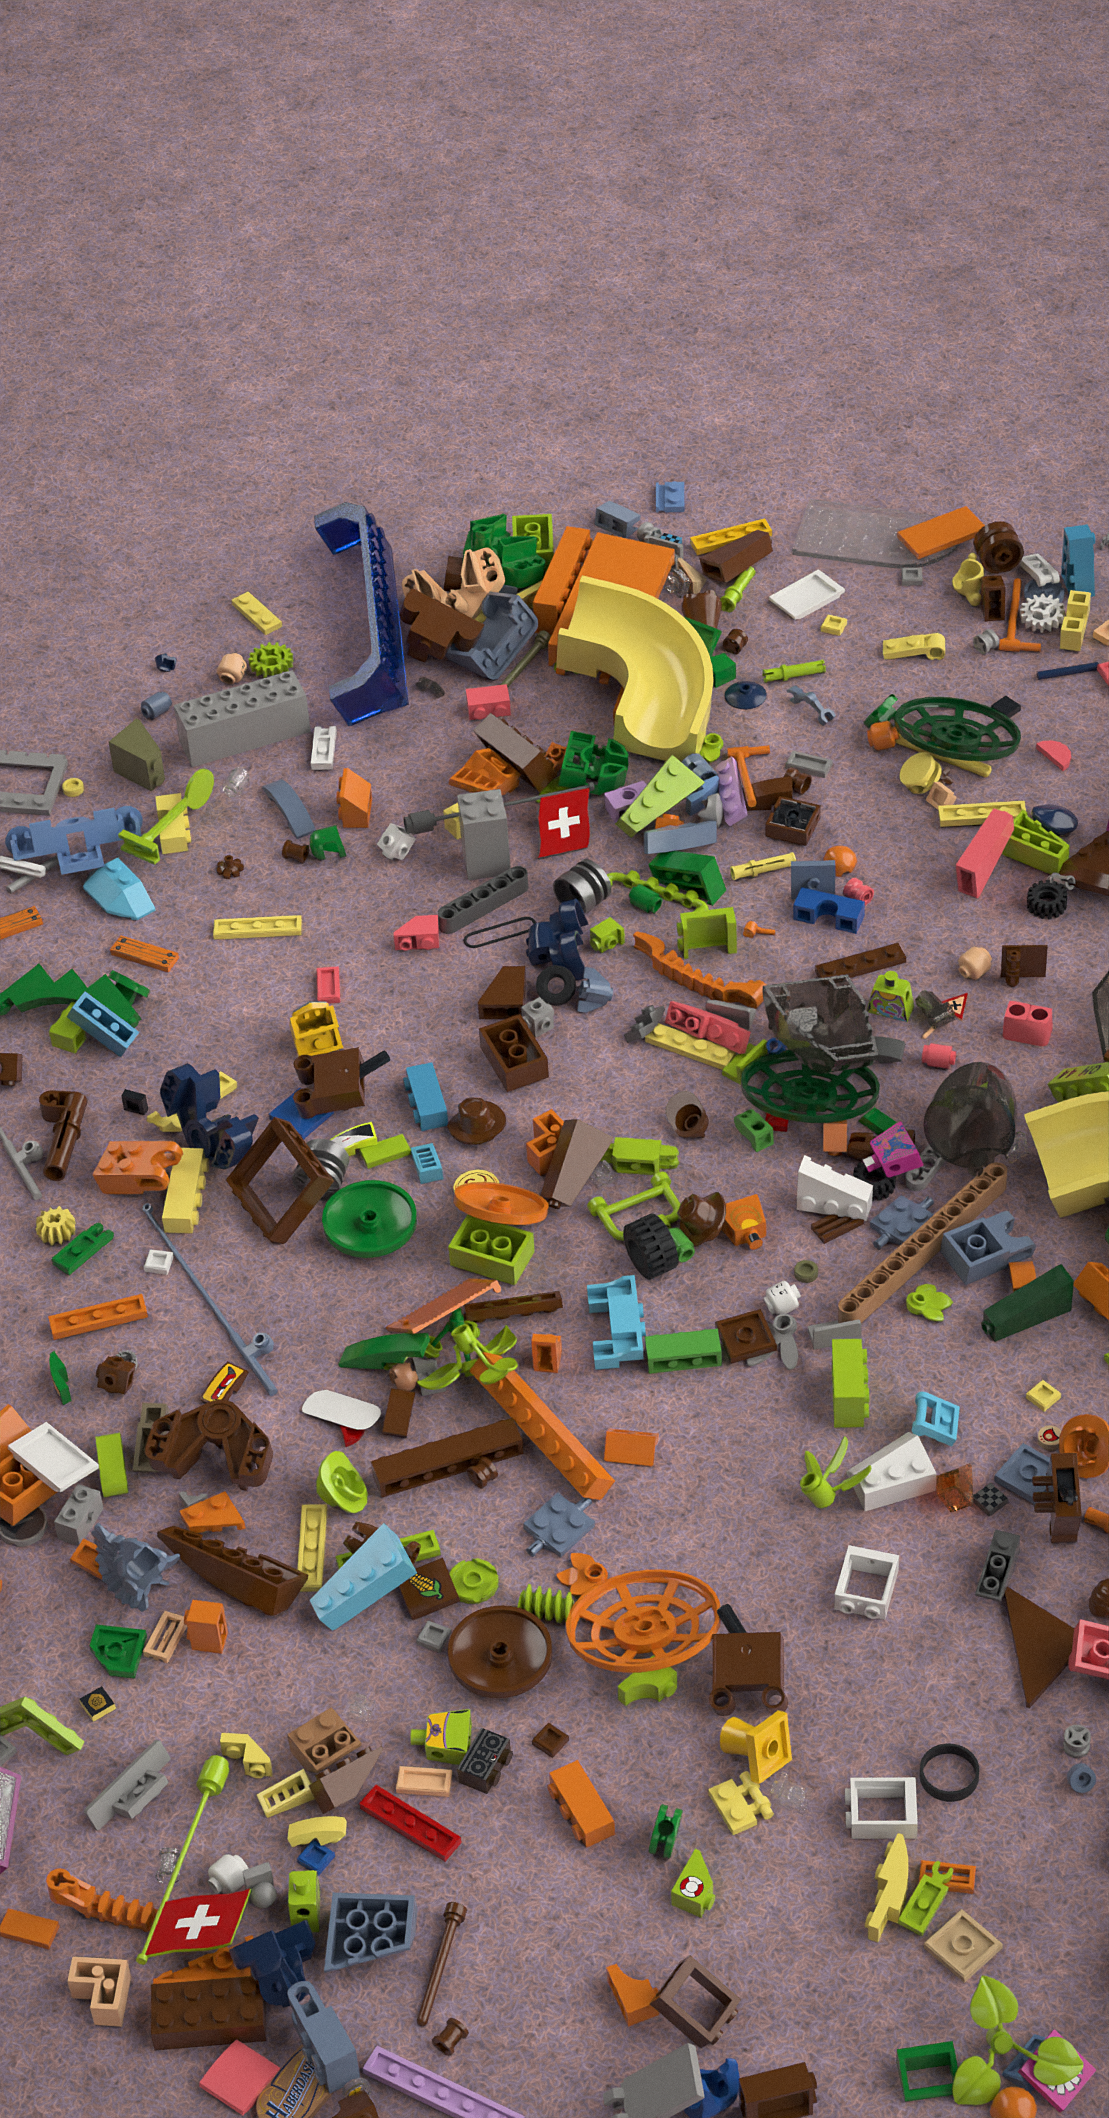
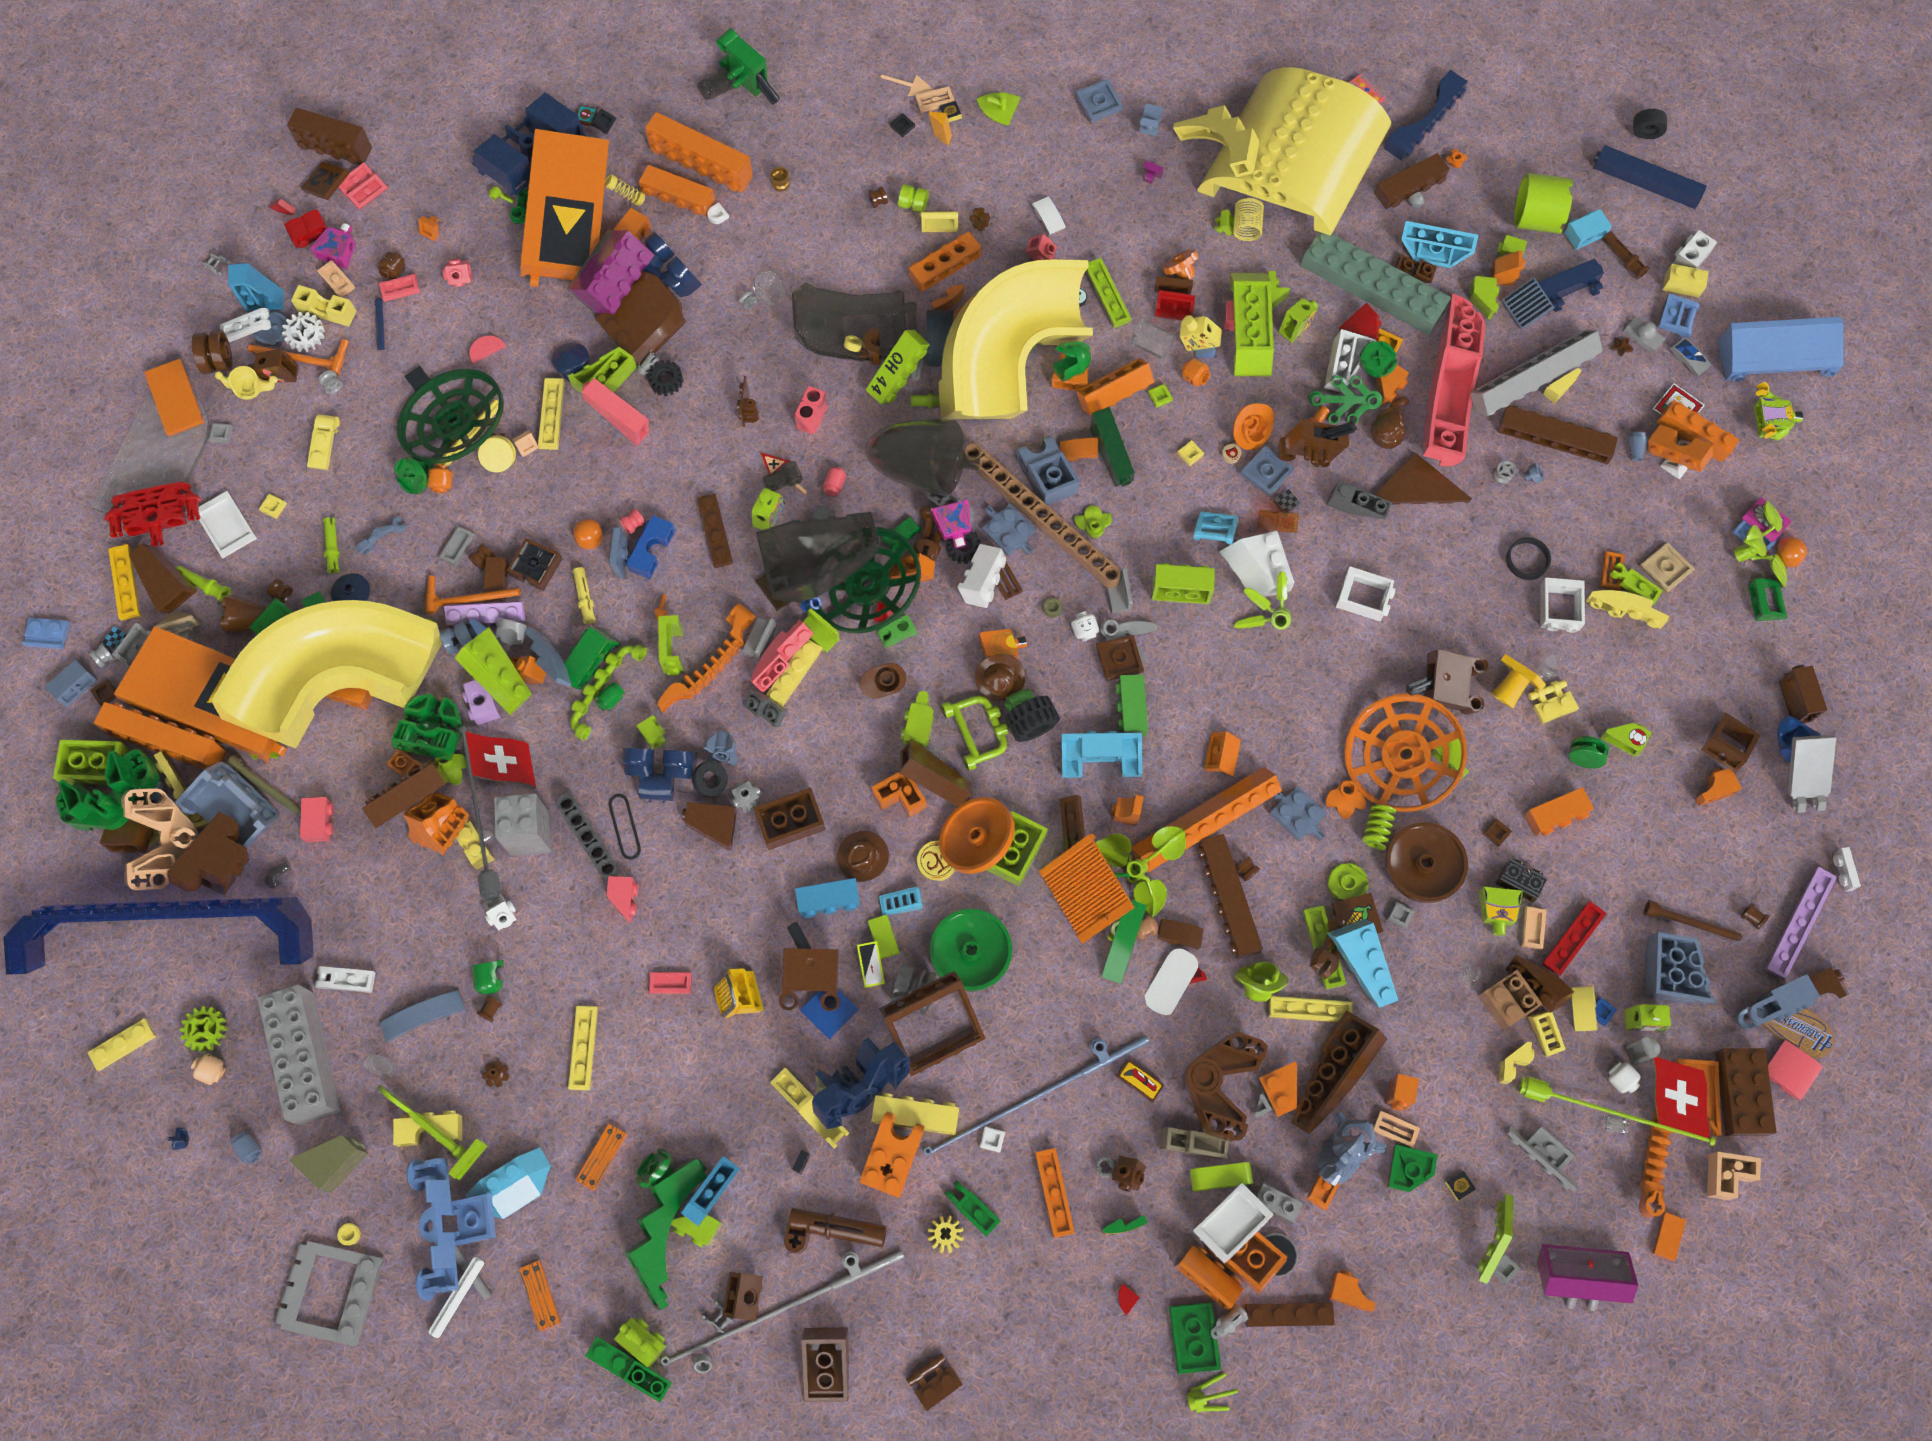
camera: 90 degrees left, 25 degrees up
(276, 1961) = (1724, 1037): dark blue piece -> none
(354, 799) = (436, 948): orange slope -> none
(585, 883) = (595, 746): flat silver wheel -> none
(807, 536) = (140, 507): none -> red piece
(974, 963) = (733, 441): light nougat head -> none

